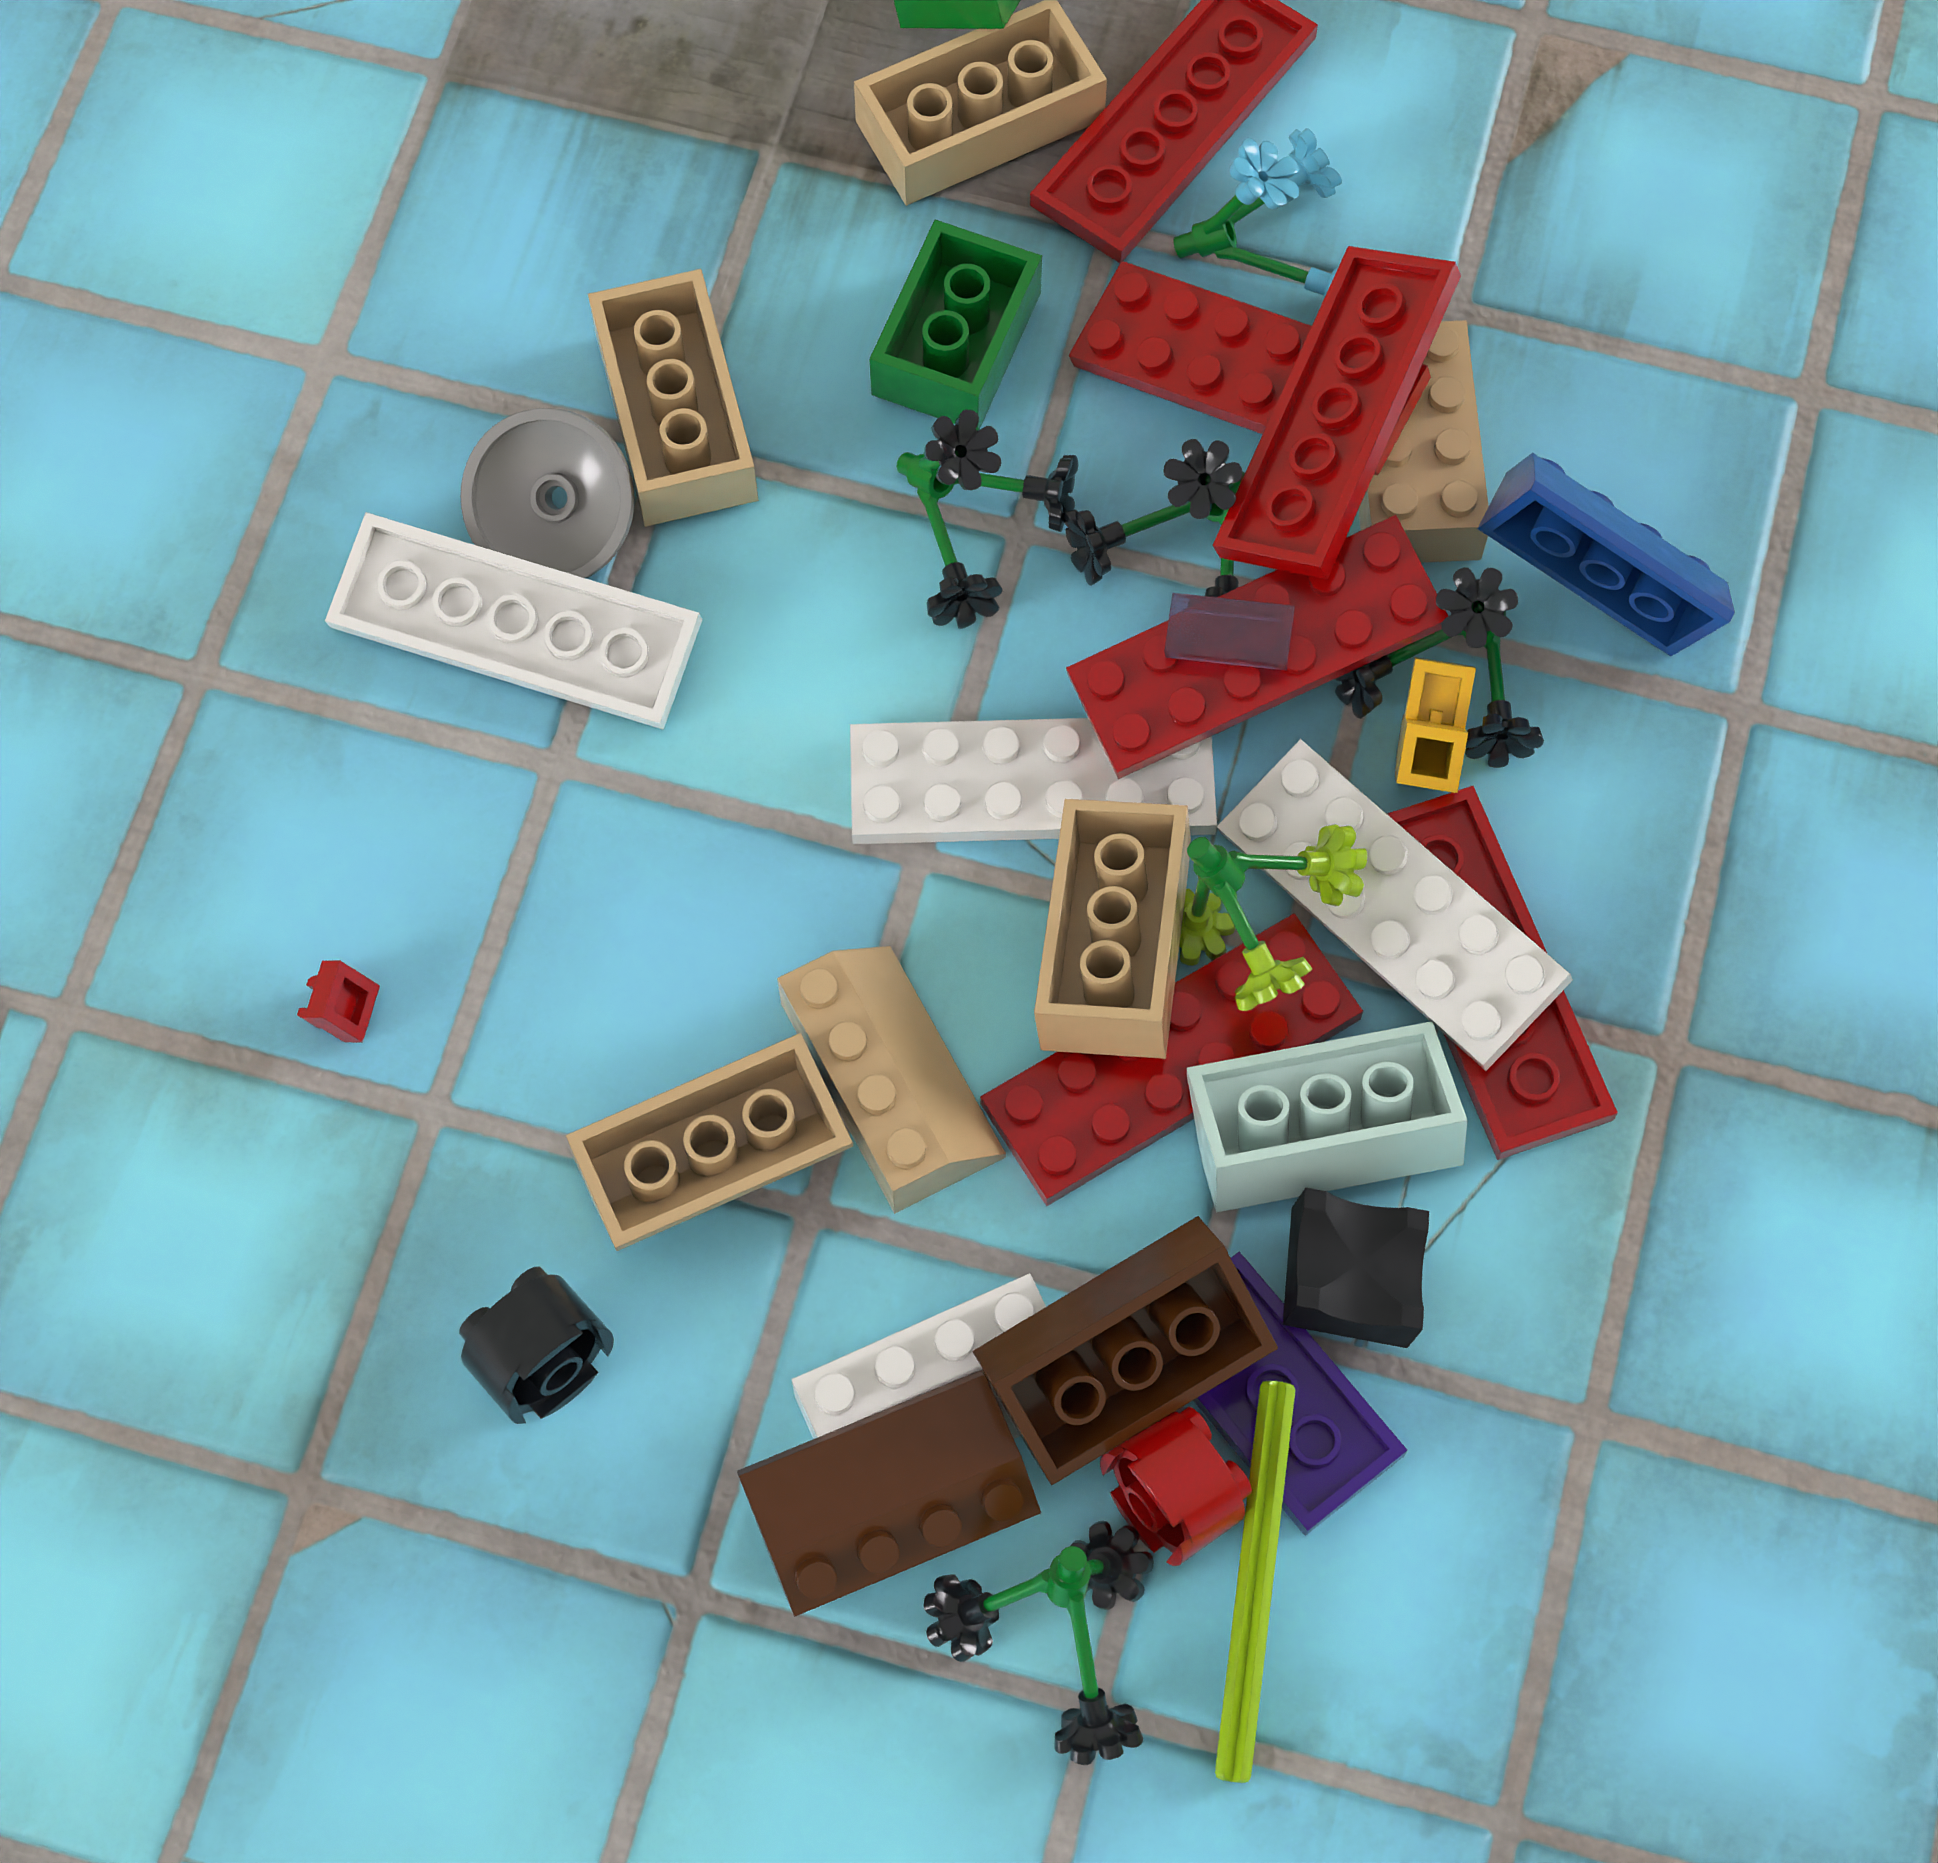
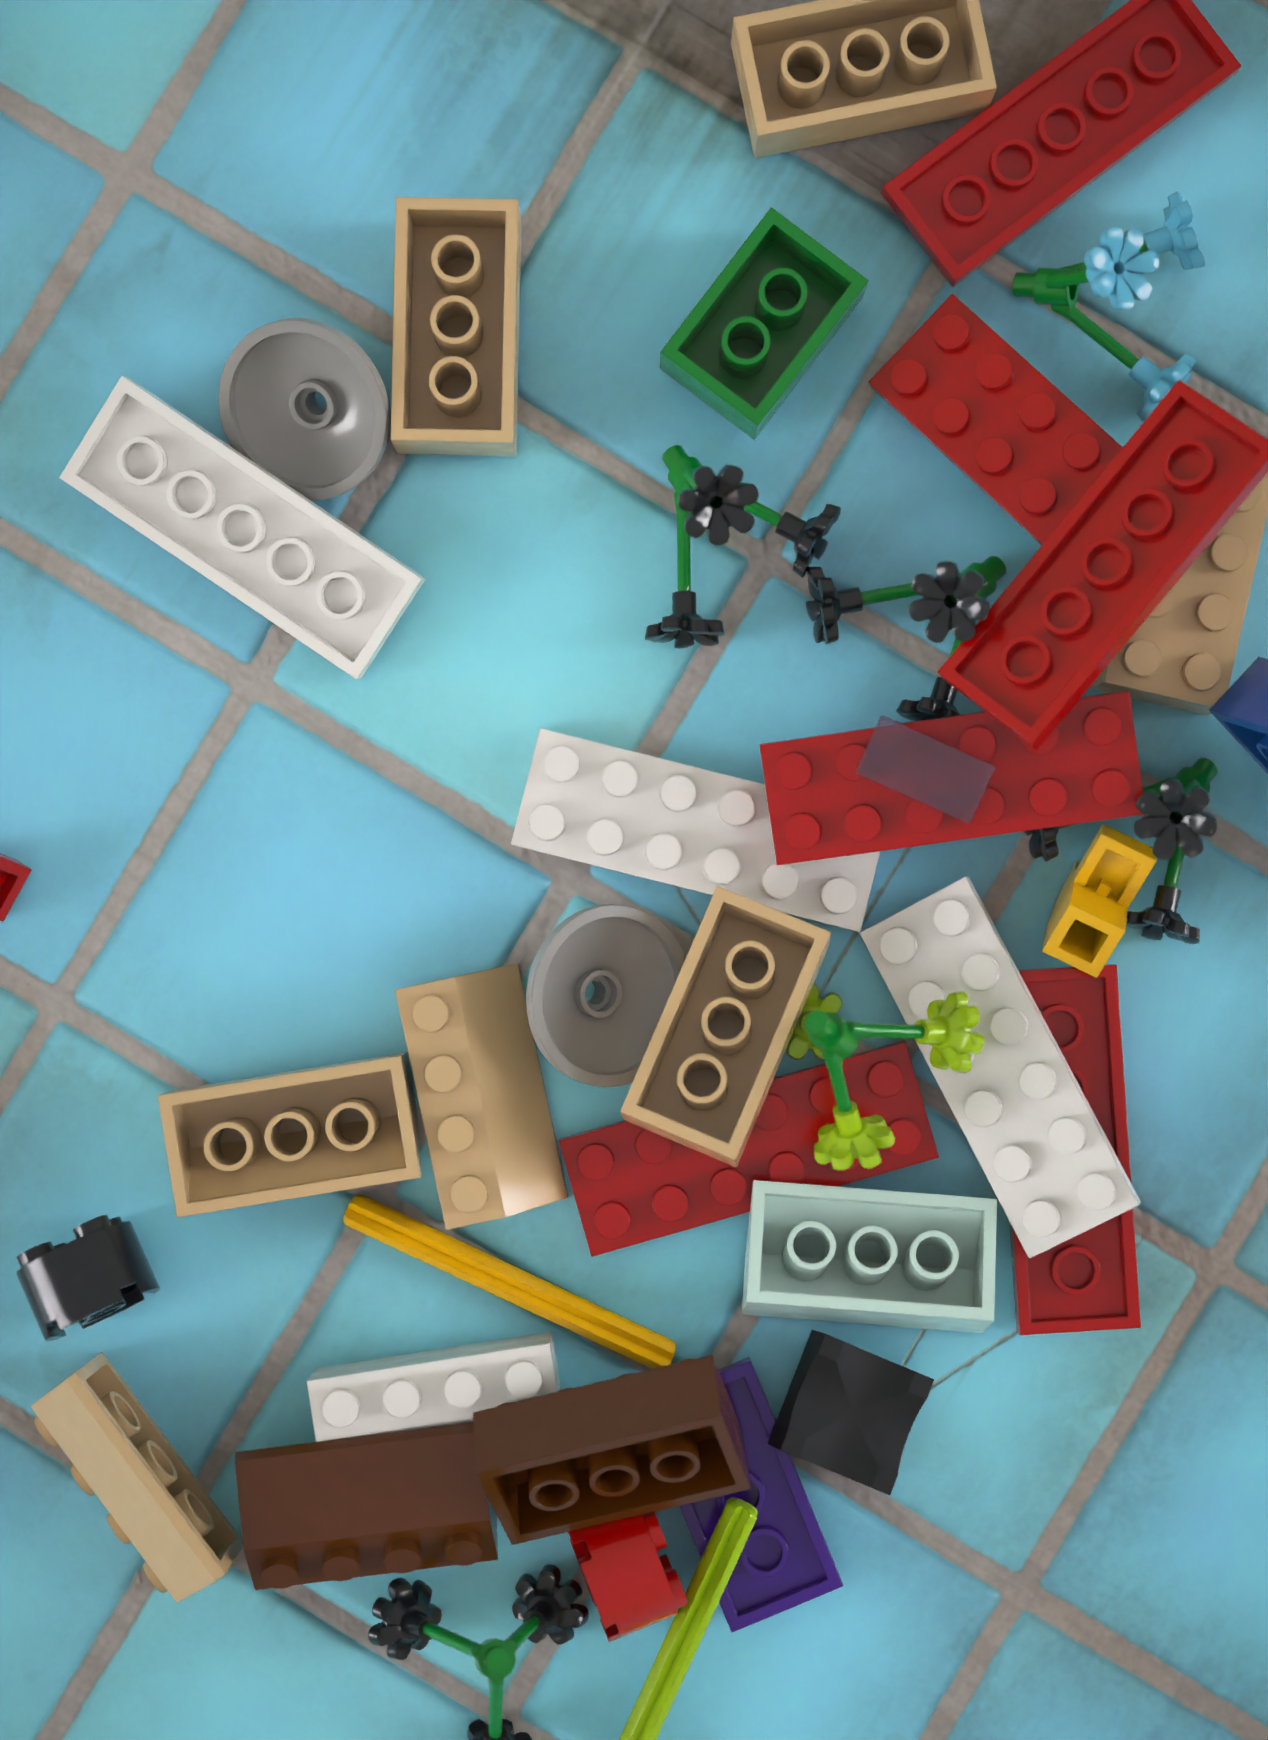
camera: 20 degrees right, 20 degrees up
(636, 1541) = (138, 1479): none -> tan slope
(945, 1246) = (509, 1282): none -> yellow axle
(996, 909) = (633, 972): none -> light grey dish

